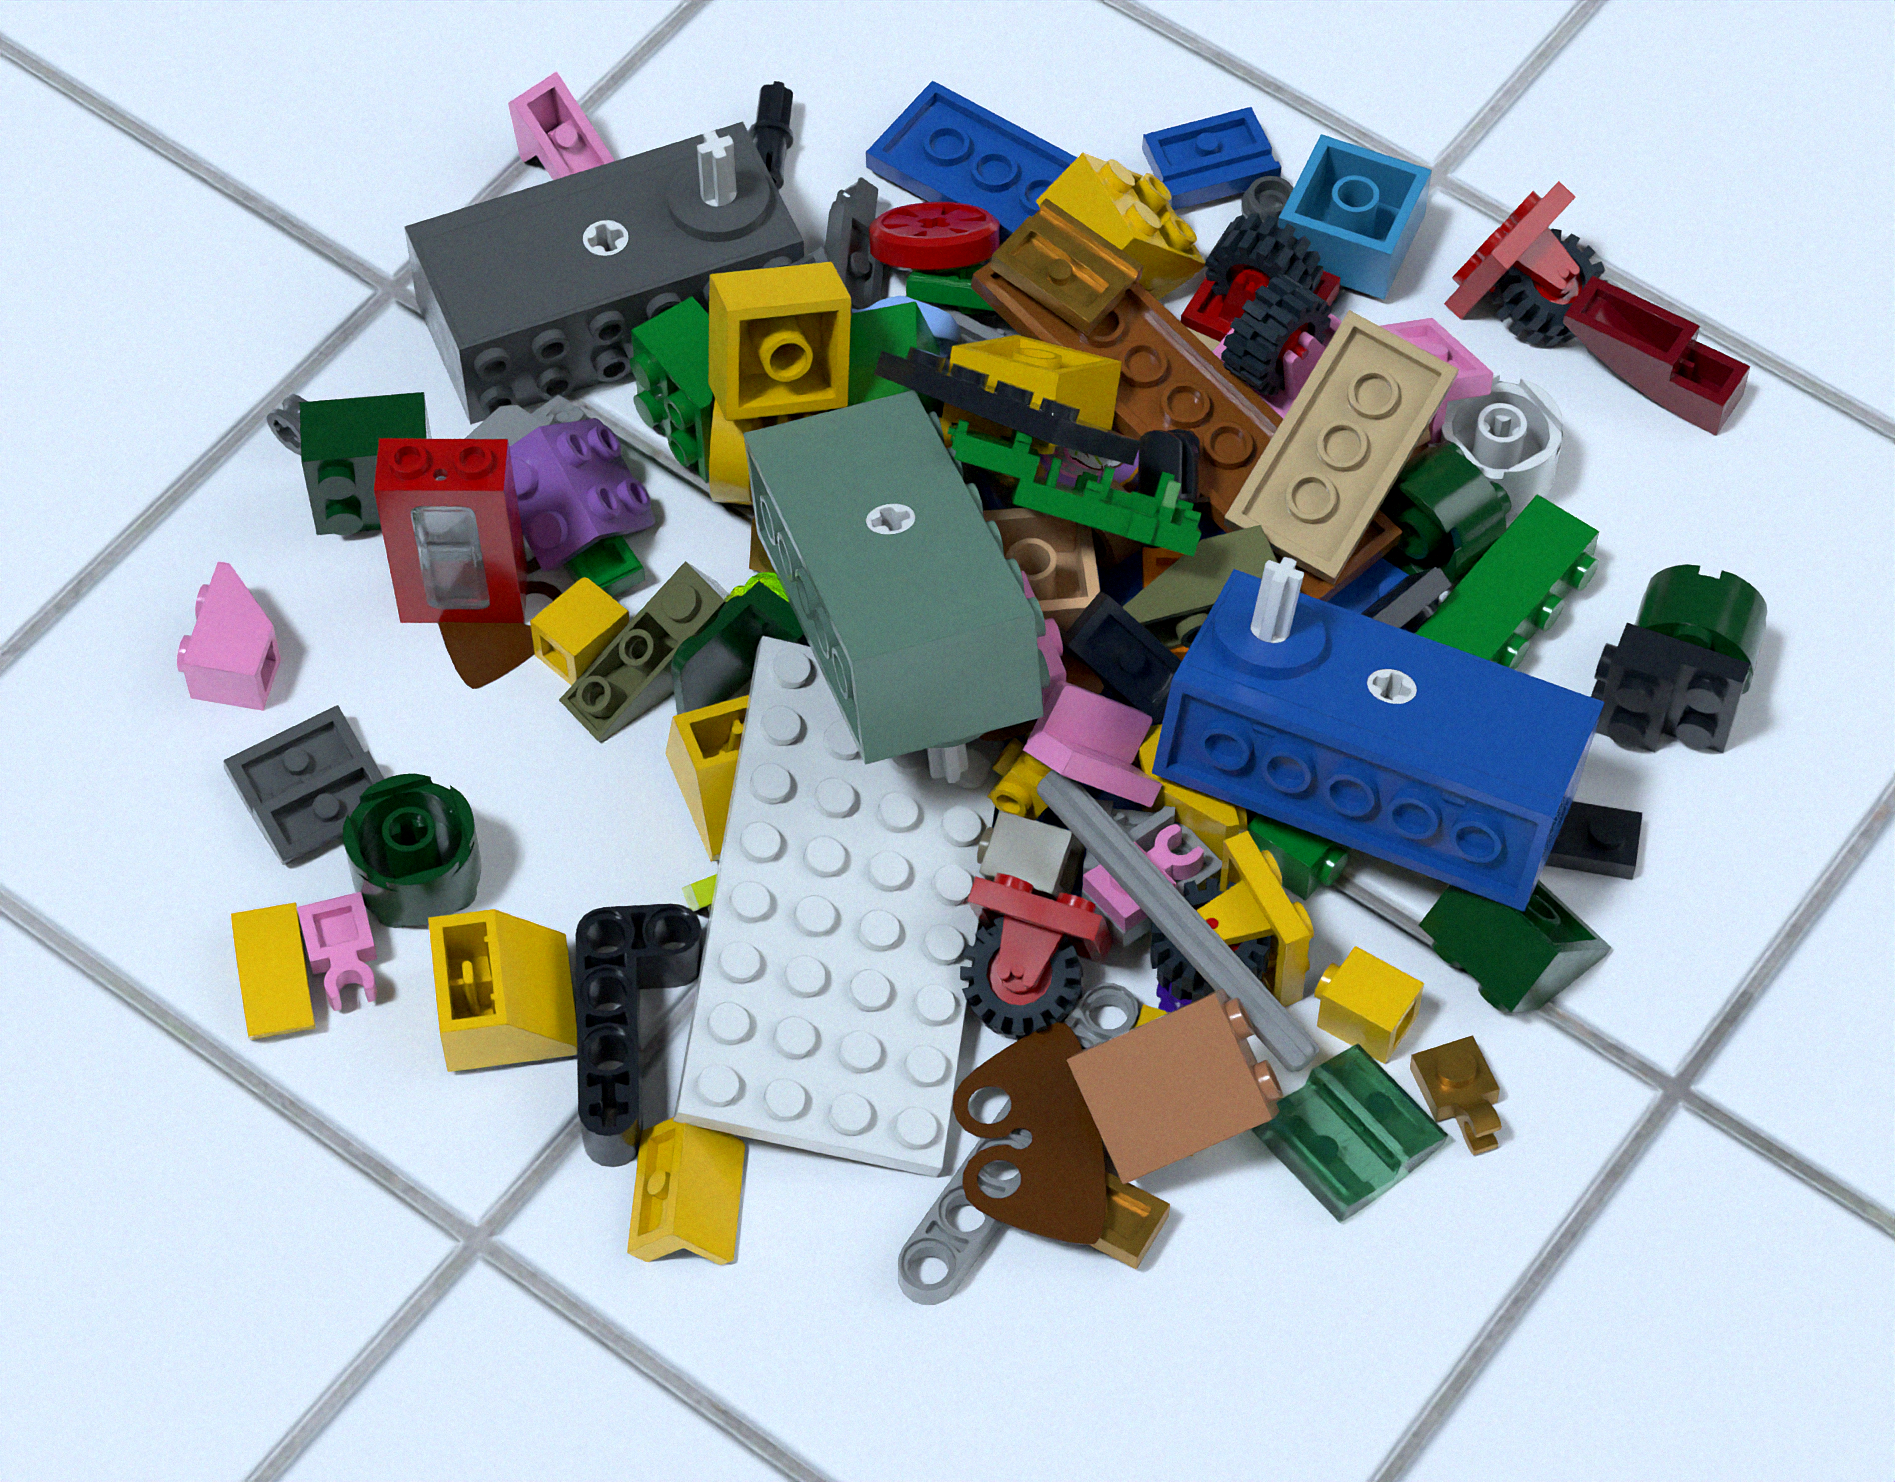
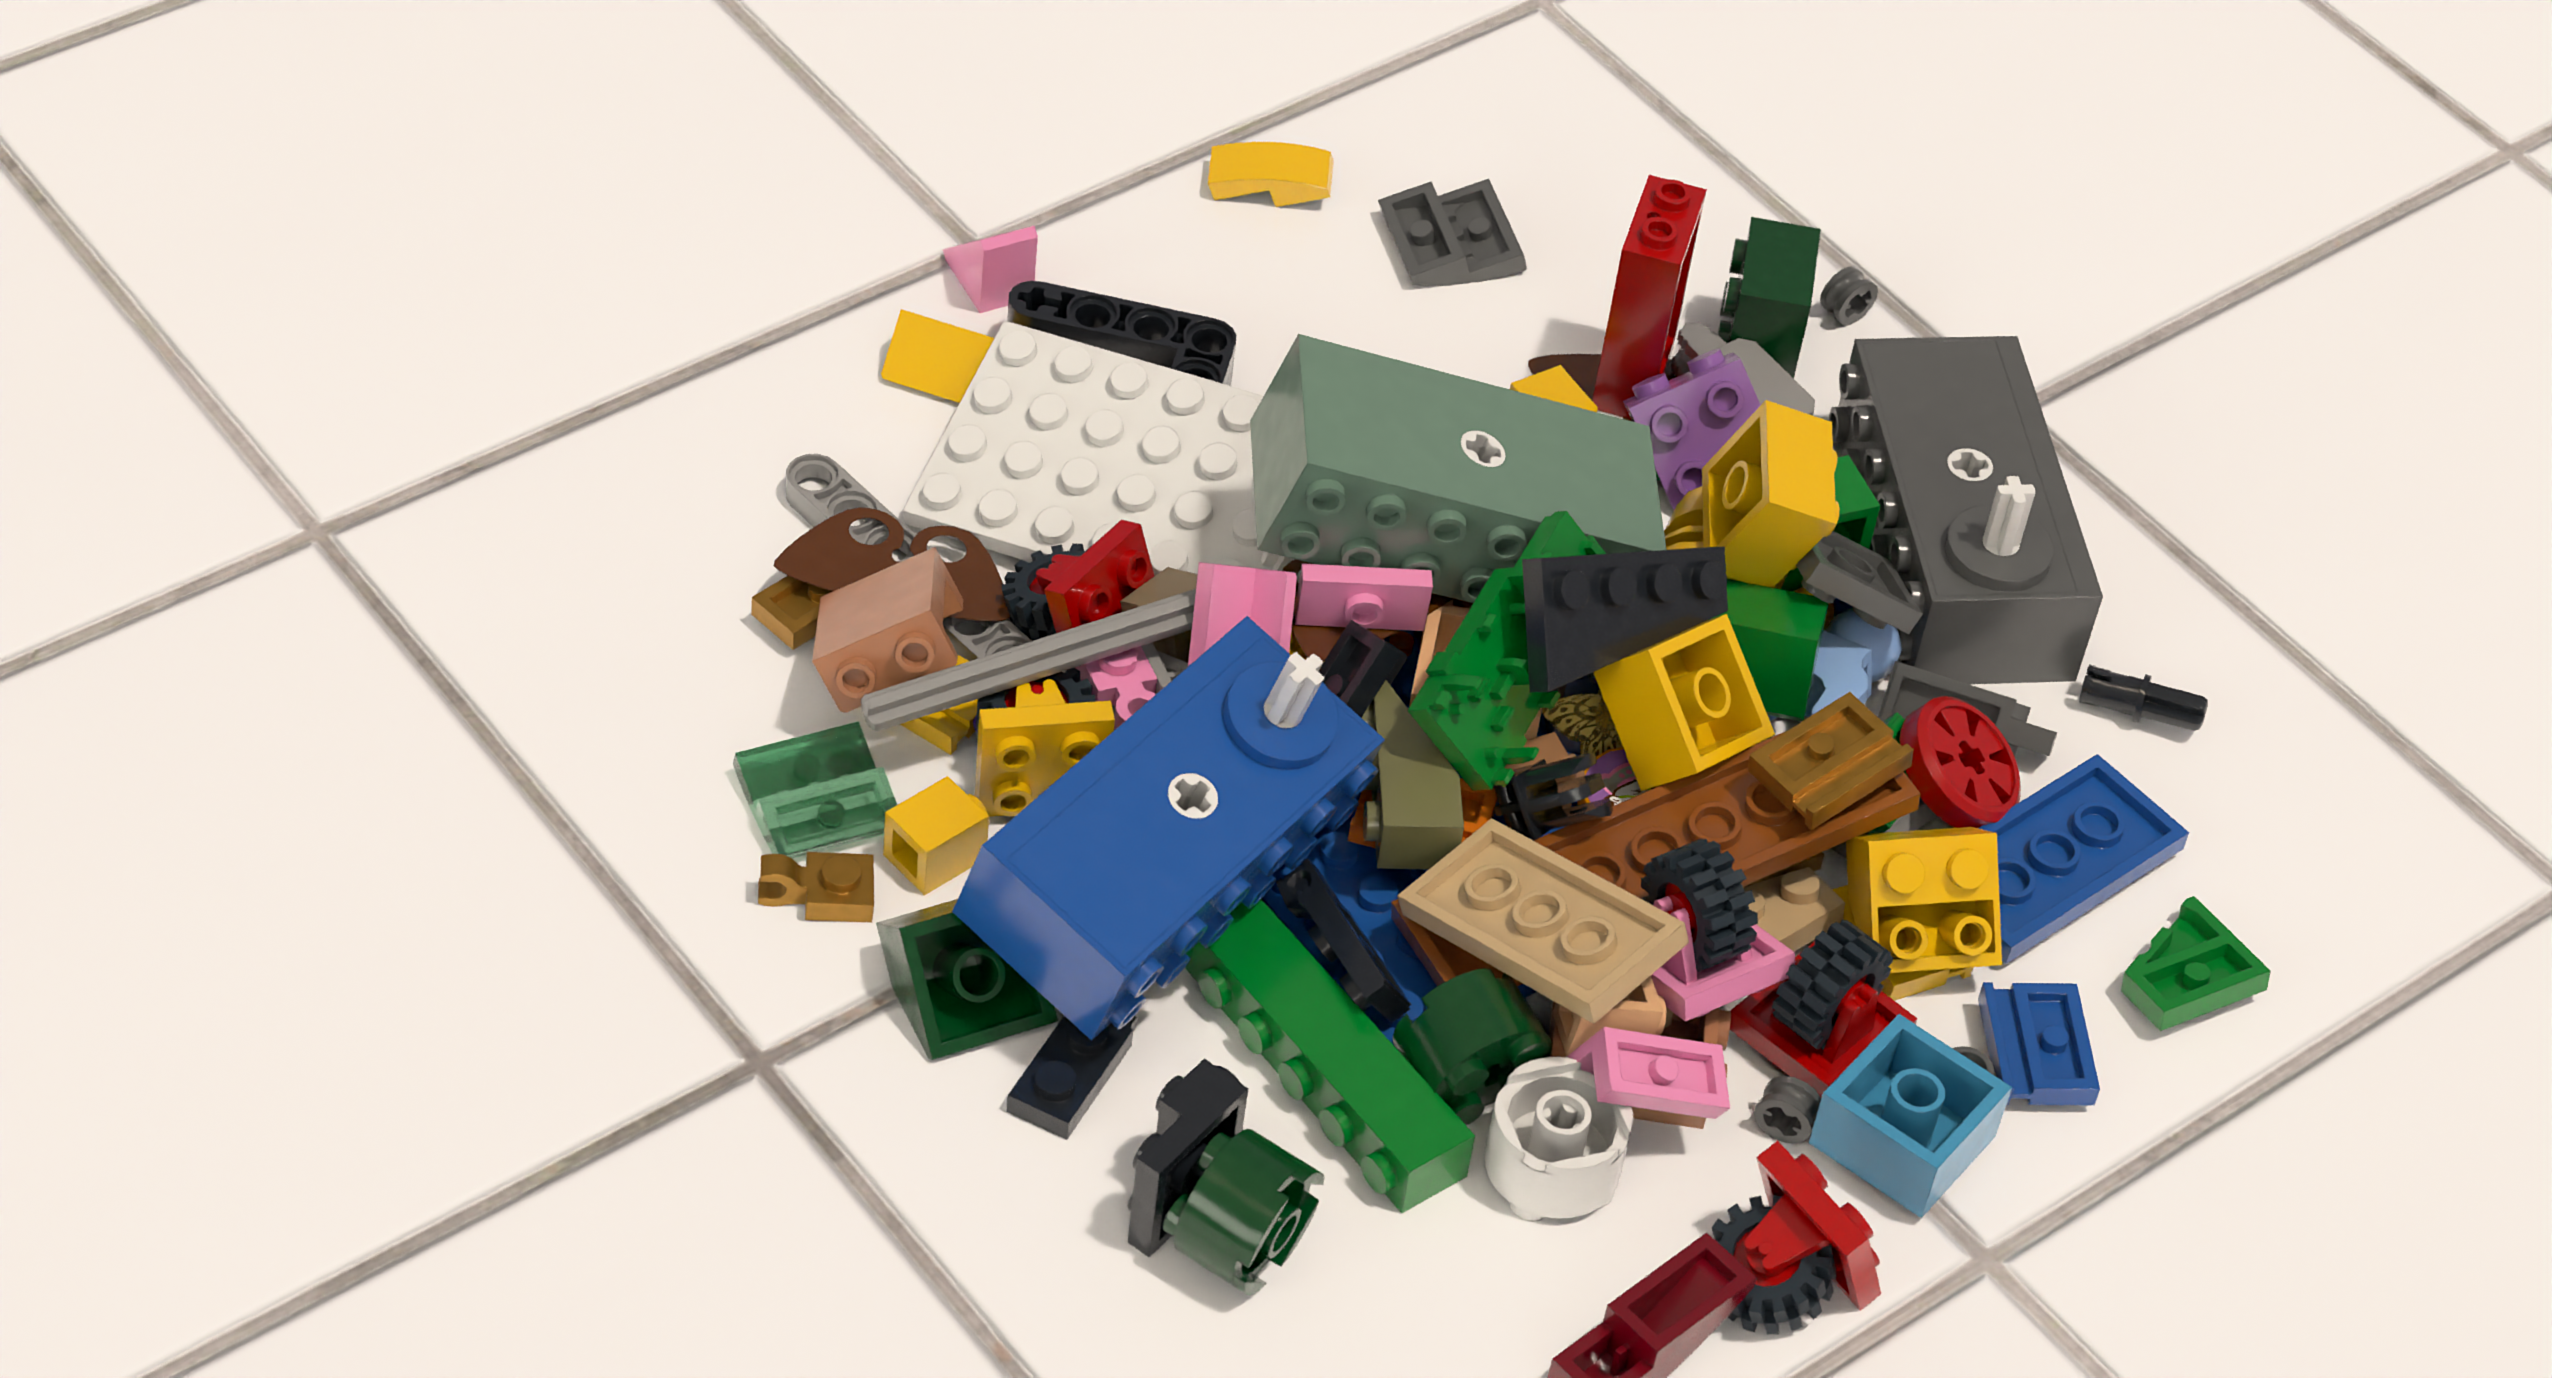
camera: 100 degrees right, 10 degrees down
(232, 645) = (1596, 205): bright pink slope -> none
(339, 944) = (1281, 211): bright pink plate -> none
(412, 850) = (1346, 255): dark green brick -> none
(501, 990) = (1190, 261): yellow slope -> none
(525, 1192) = (994, 266): none -> bright pink slope
(556, 129) = (2161, 522): bright pink slope -> none
(1076, 71) = (2192, 969): none -> green wing
(1370, 302) = (1787, 1109): none -> dark grey bush

